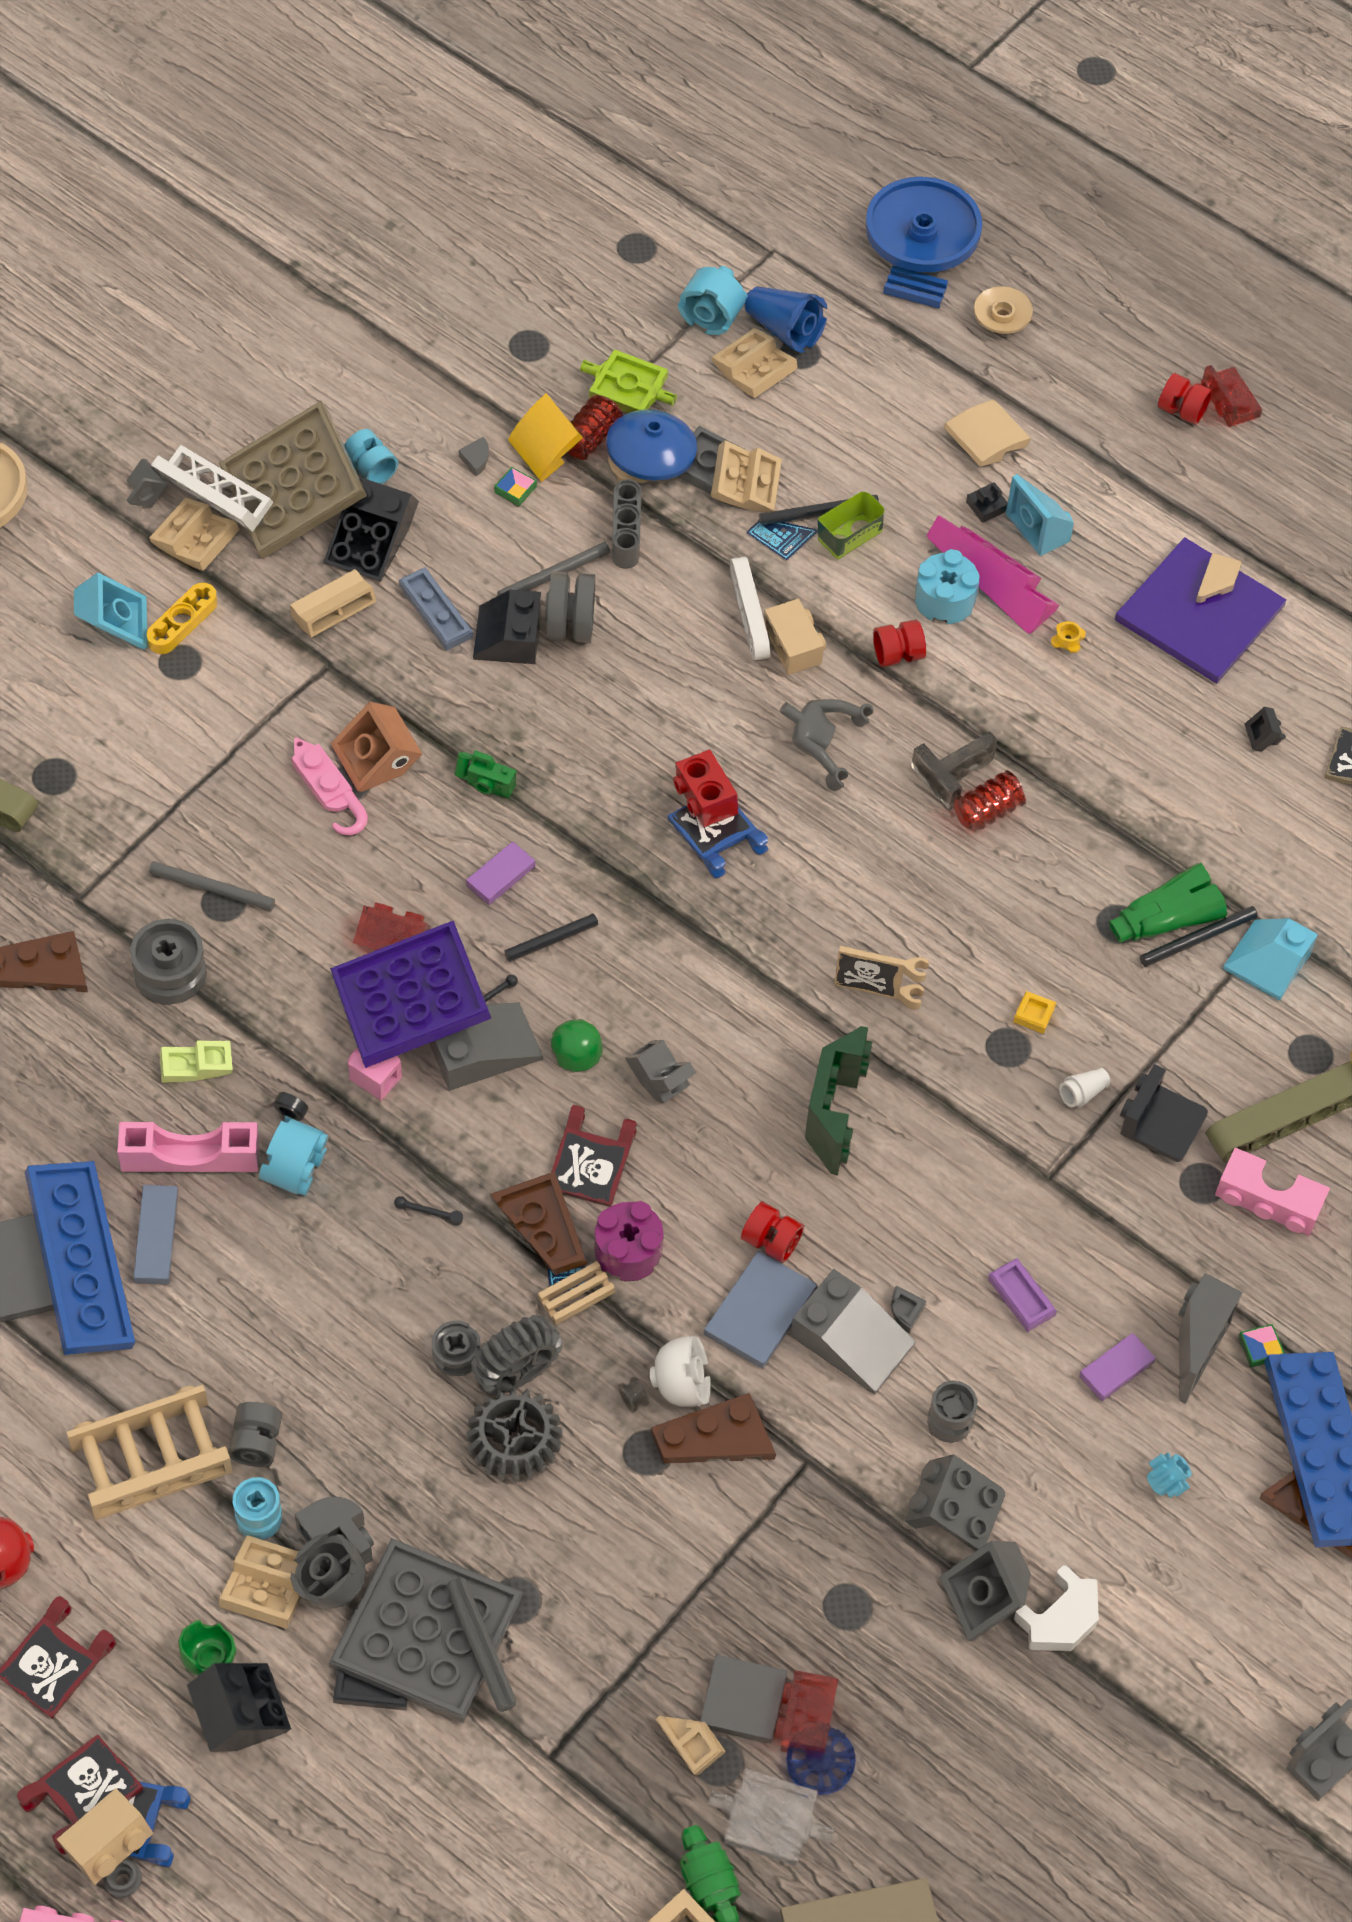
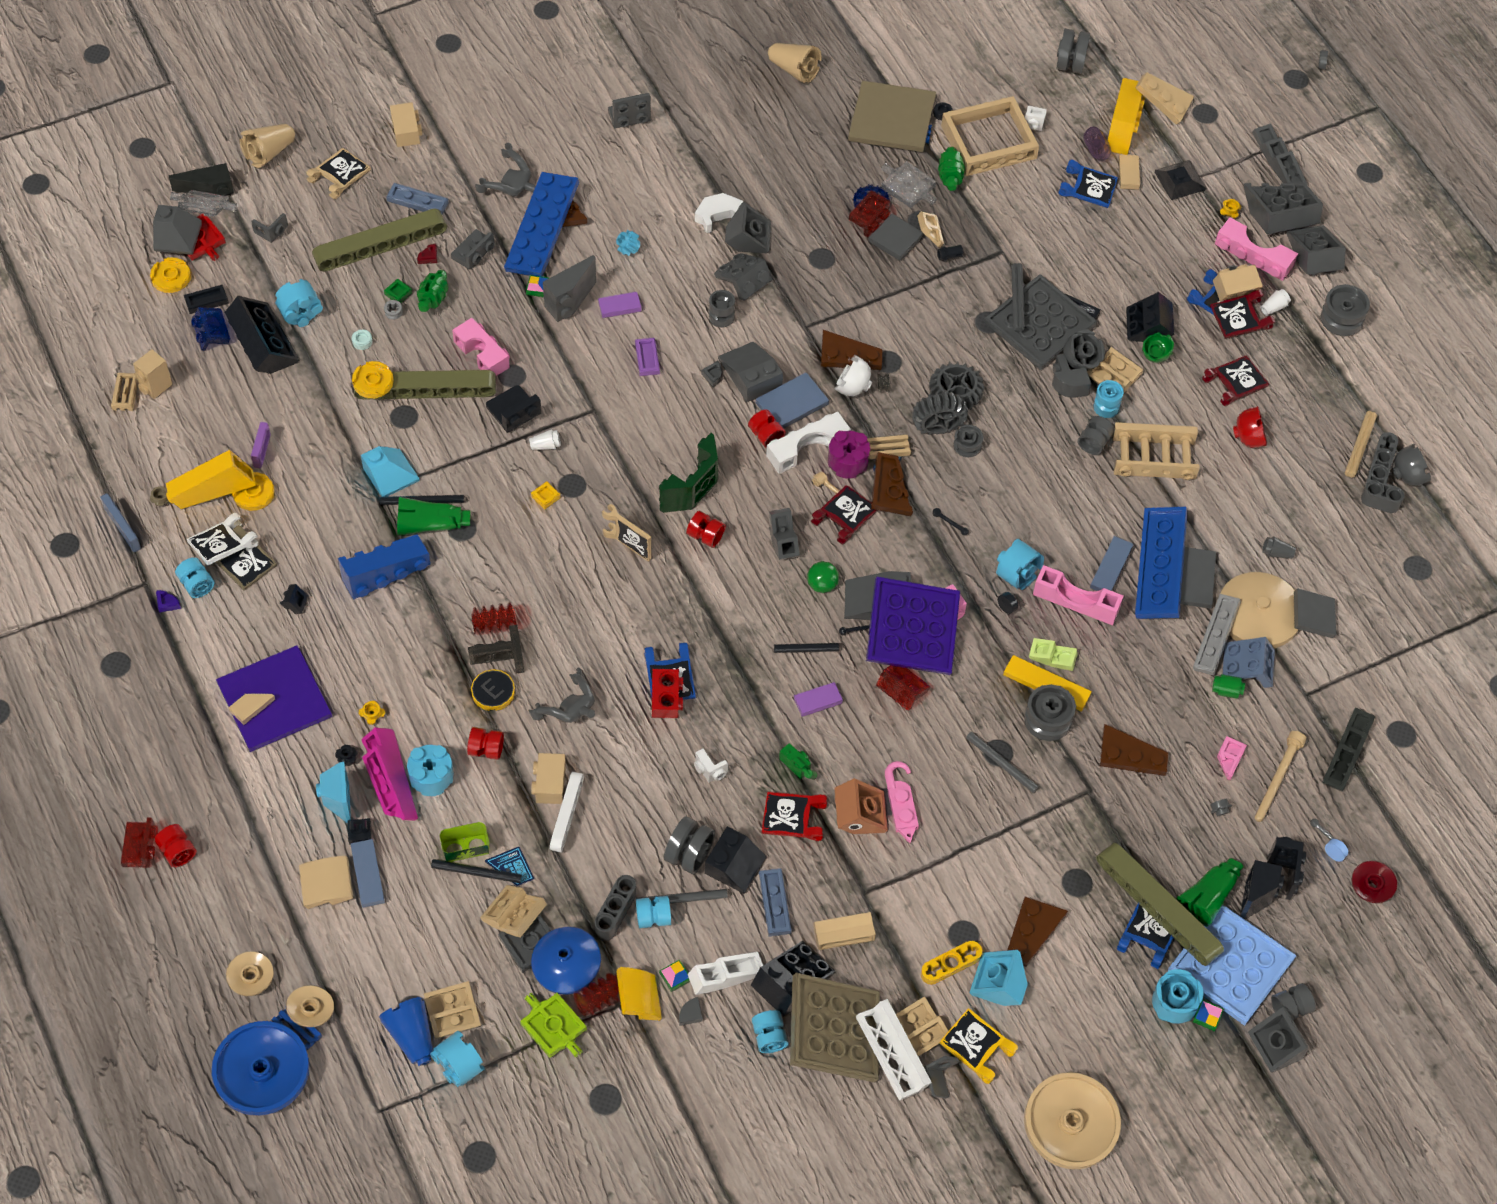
camera: 155 degrees left, 0 degrees up
(26, 1846) = (1275, 302): none -> white cone
(92, 694) = (1033, 927): none -> reddish brown wing
(116, 538) = (974, 1042): none -> flag
(189, 1017) = (1034, 677): none -> yellow tile
(454, 504) = (724, 972): none -> white slope
(465, 715) = (790, 813): none -> flag
(580, 530) = (653, 912): none -> medium azure wheel
(601, 723) = (710, 771): none -> white bracket
(636, 1701) = (949, 252): none -> black pin
(653, 1195) = (821, 478): none -> tan hand
(676, 1271) = (784, 451): none -> white arch
(777, 1037) = (706, 529): none -> red wheel
(913, 290) = (310, 998): none -> tan dish
(935, 721) = (493, 690): none -> black tile
(945, 461) = (367, 873): none -> sand blue tile
(1060, 582) = (348, 760): none -> black plate
(1182, 808) = (383, 565): none -> blue wedge

